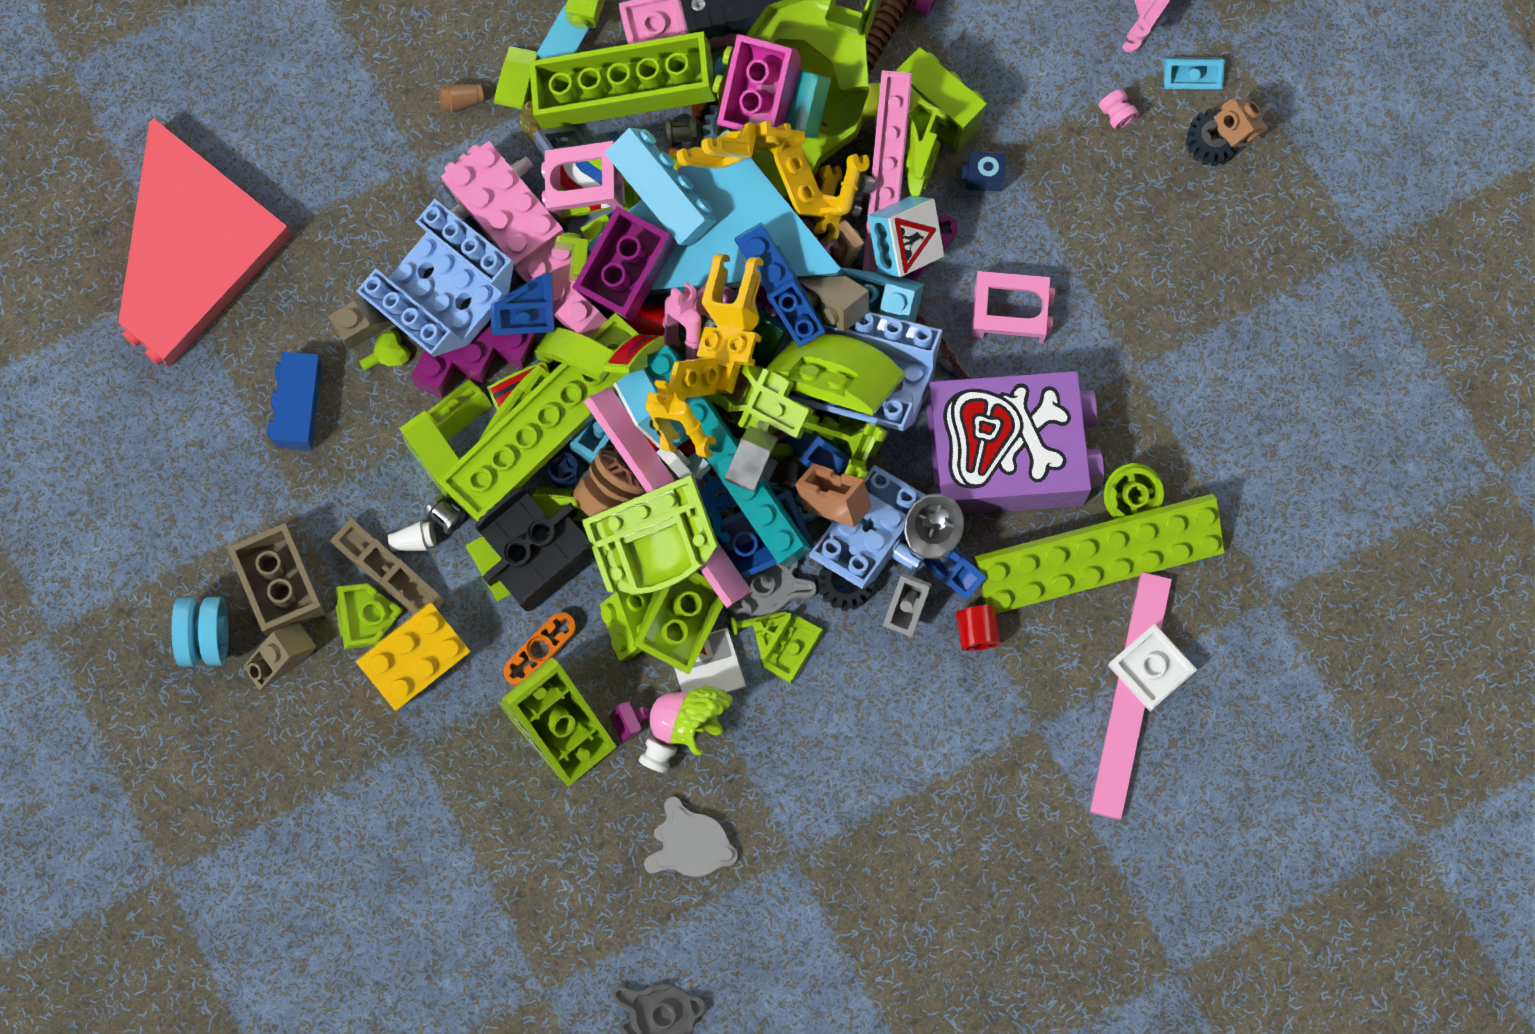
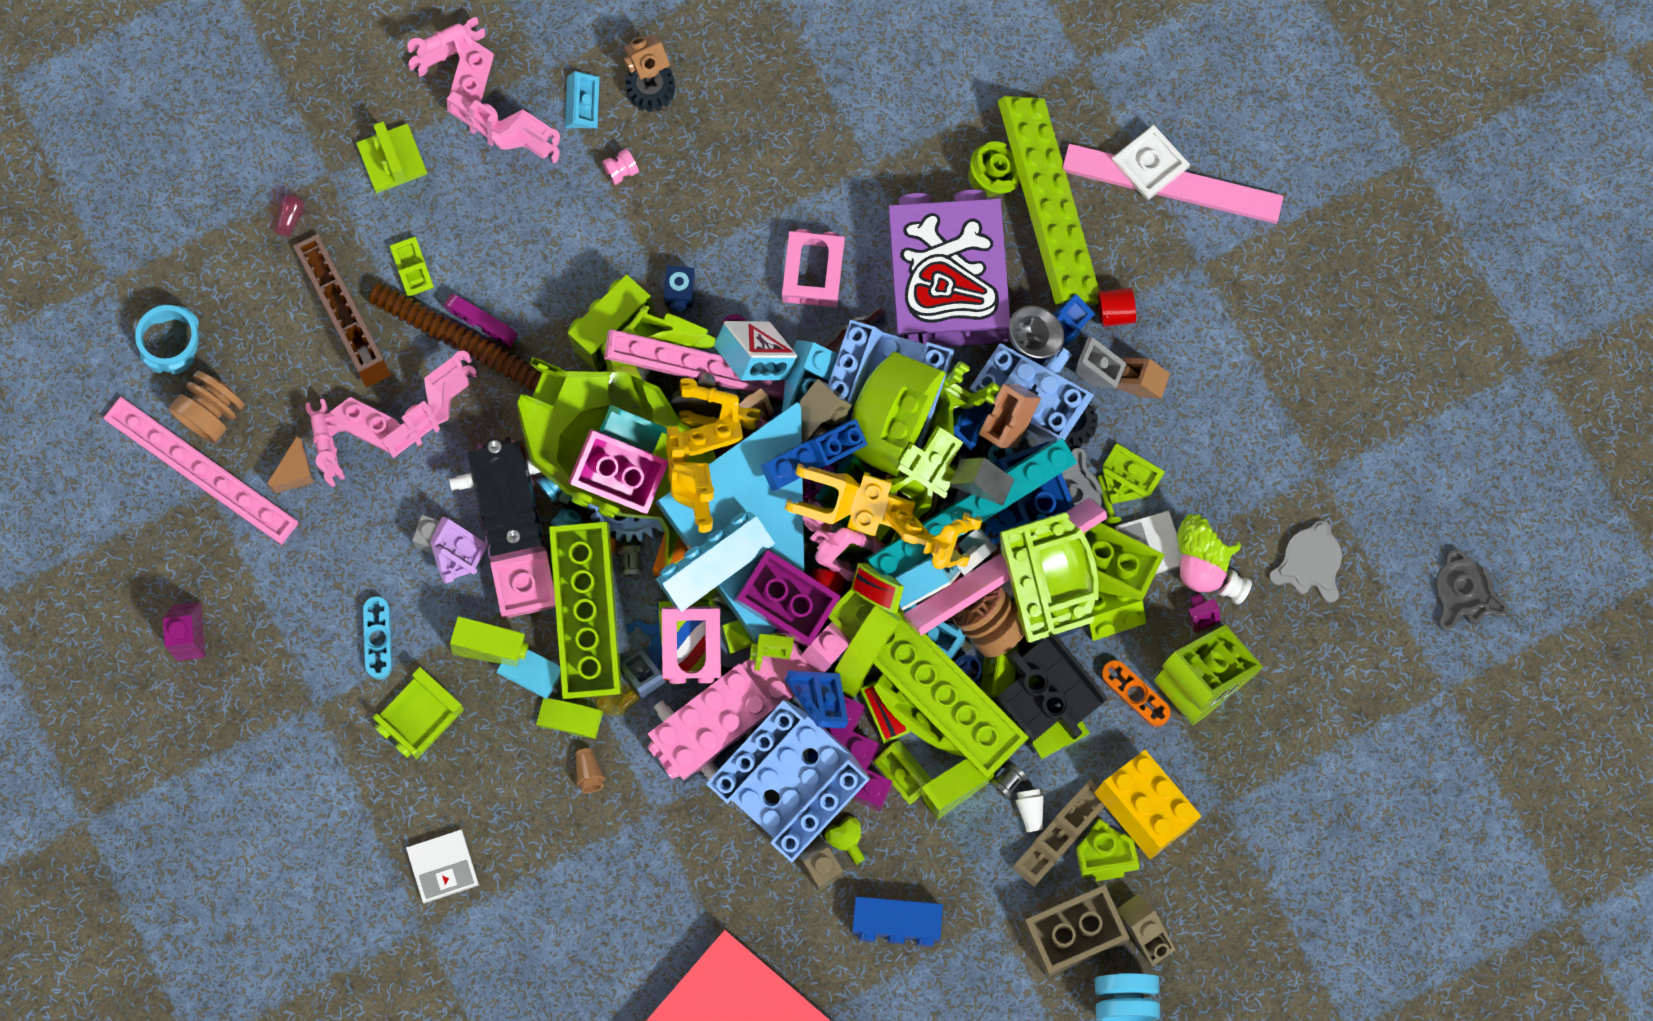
camera: 85 degrees left, 0 degrees up
(896, 656) = (1143, 378): none -> medium nougat slope

